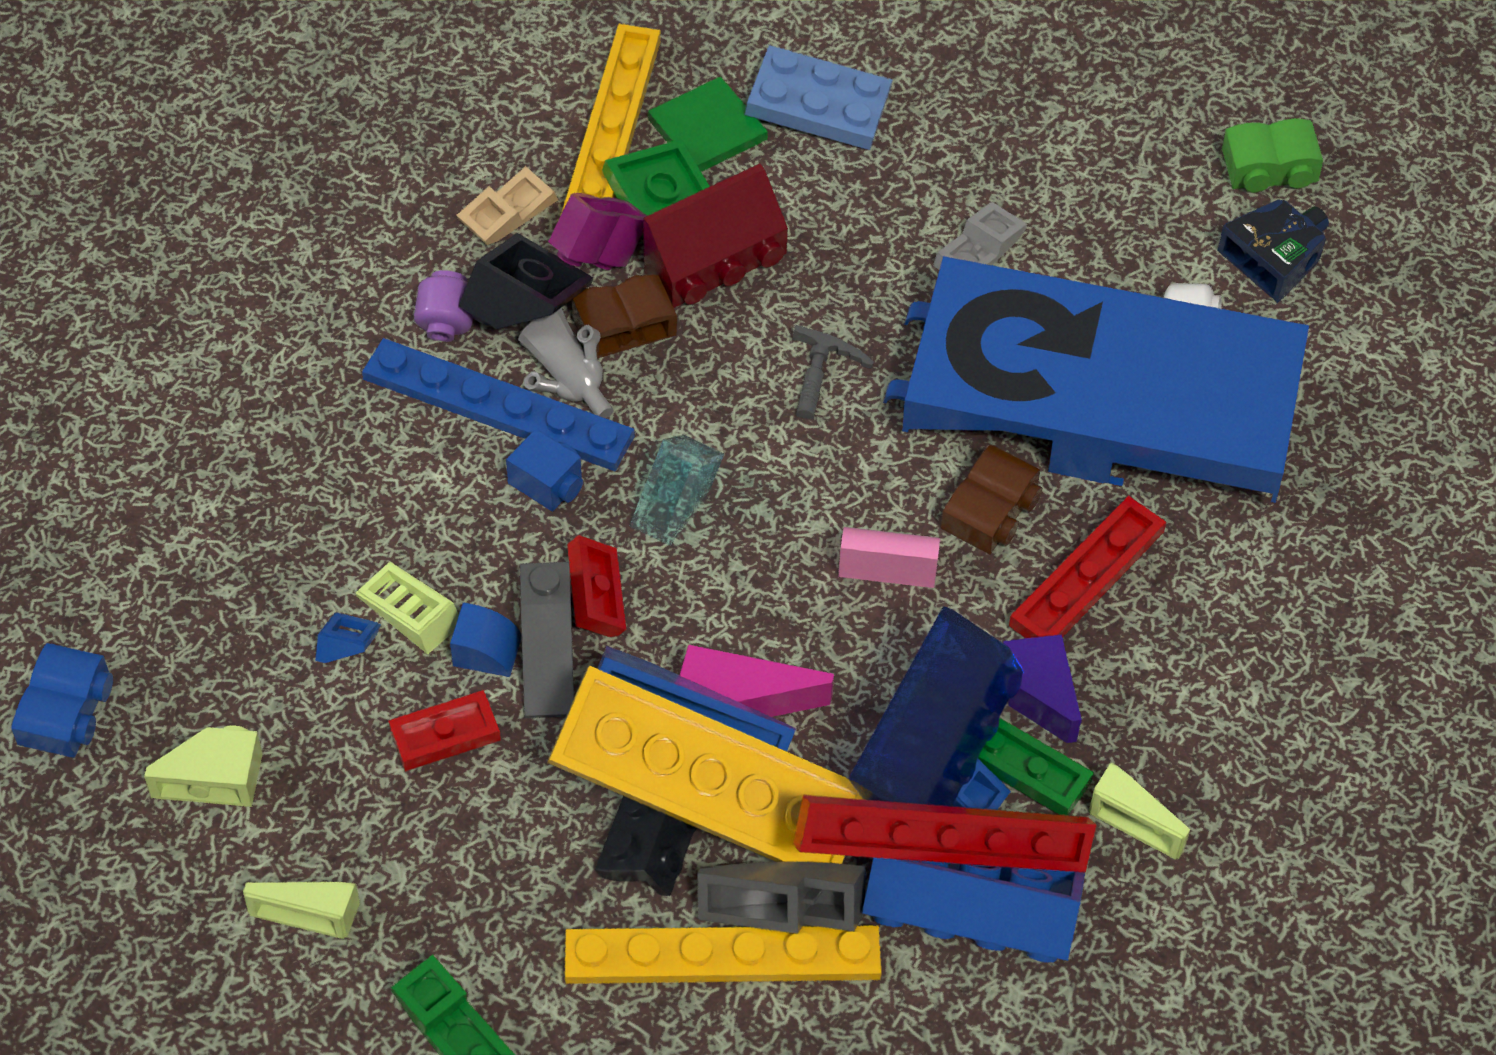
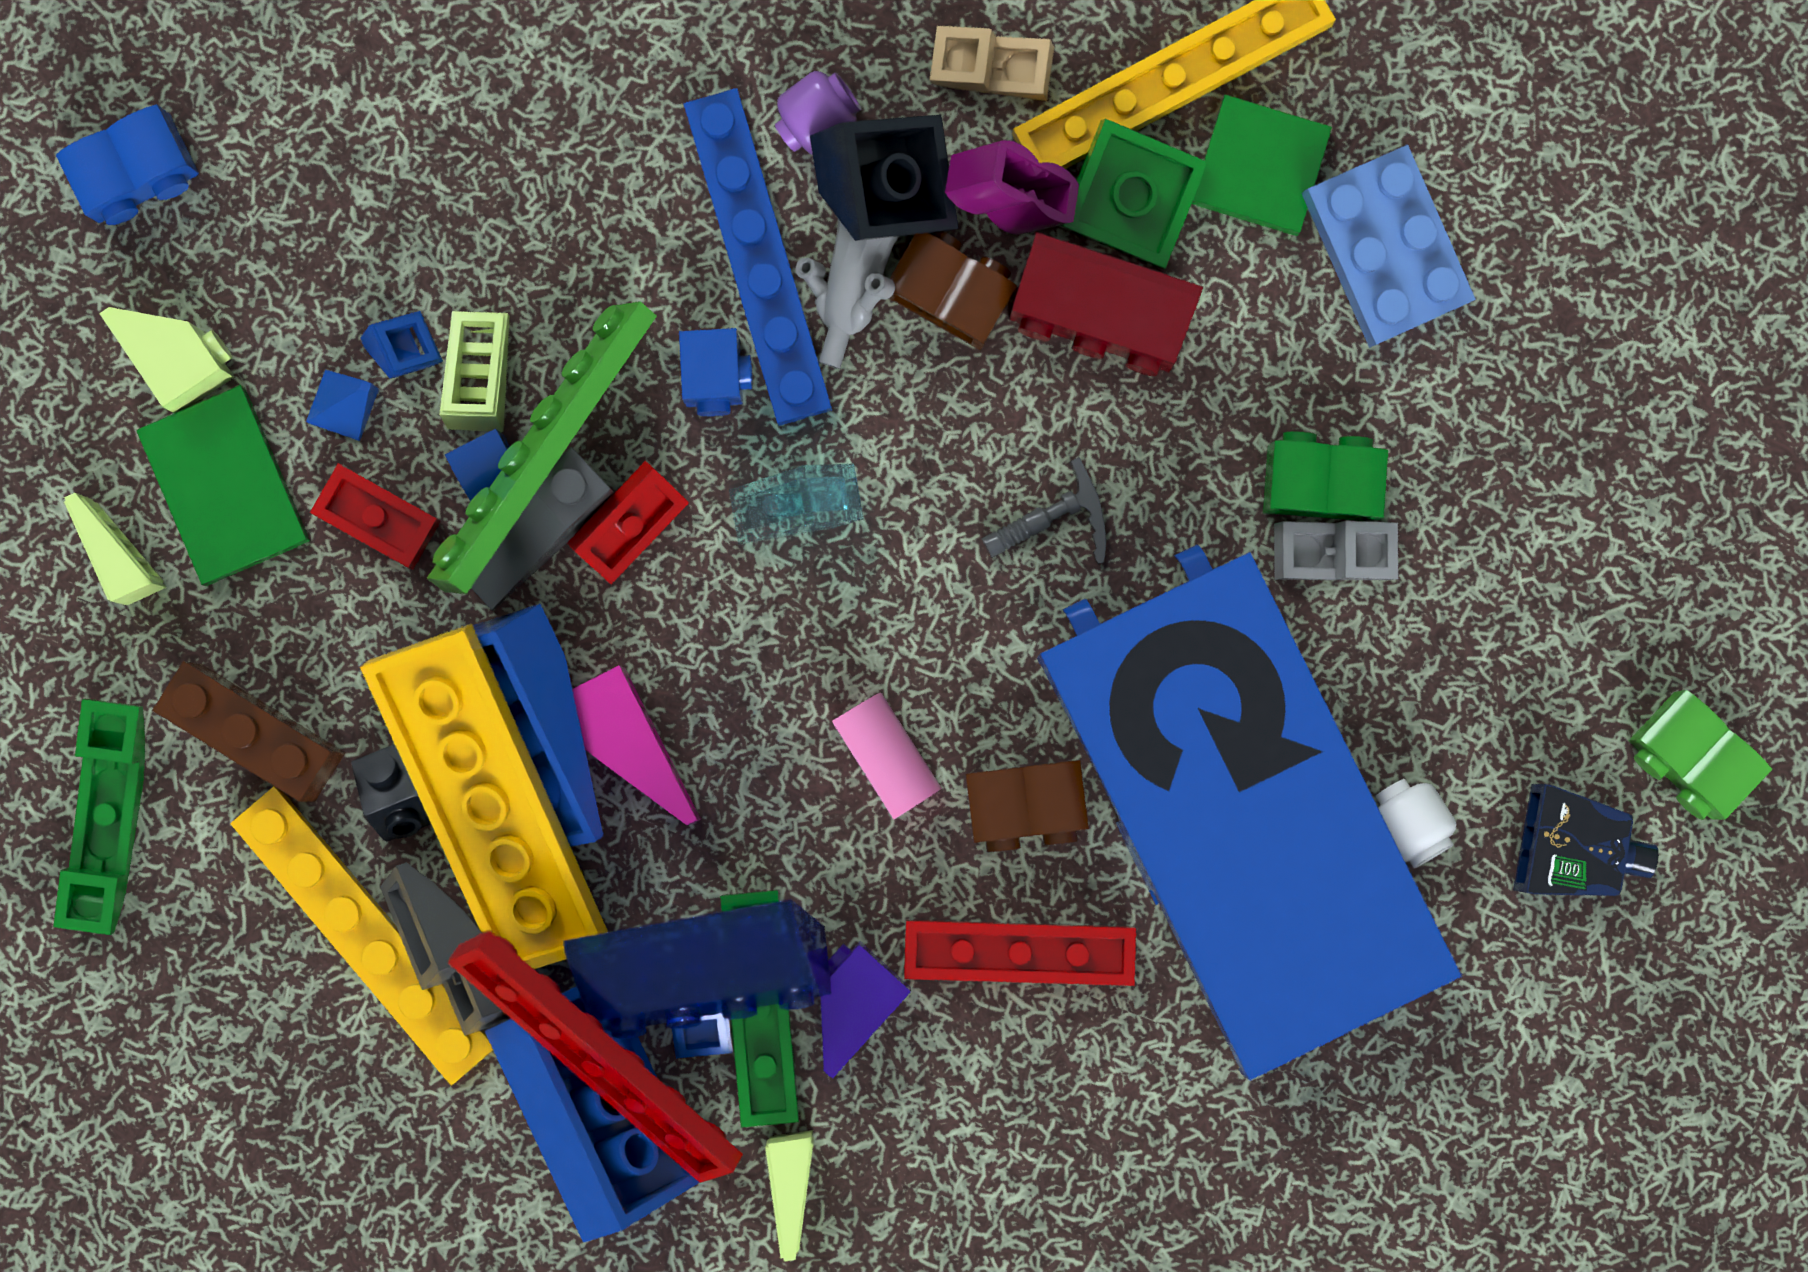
camera: 50 degrees right, 30 degrees up
(328, 811) = (223, 485): none -> green tile
(349, 697) = (342, 404): none -> blue slope
(504, 583) = (529, 461): none -> bright green plate
(515, 907) = (248, 731): none -> reddish brown brick
(929, 215) = (1325, 479): none -> green brick

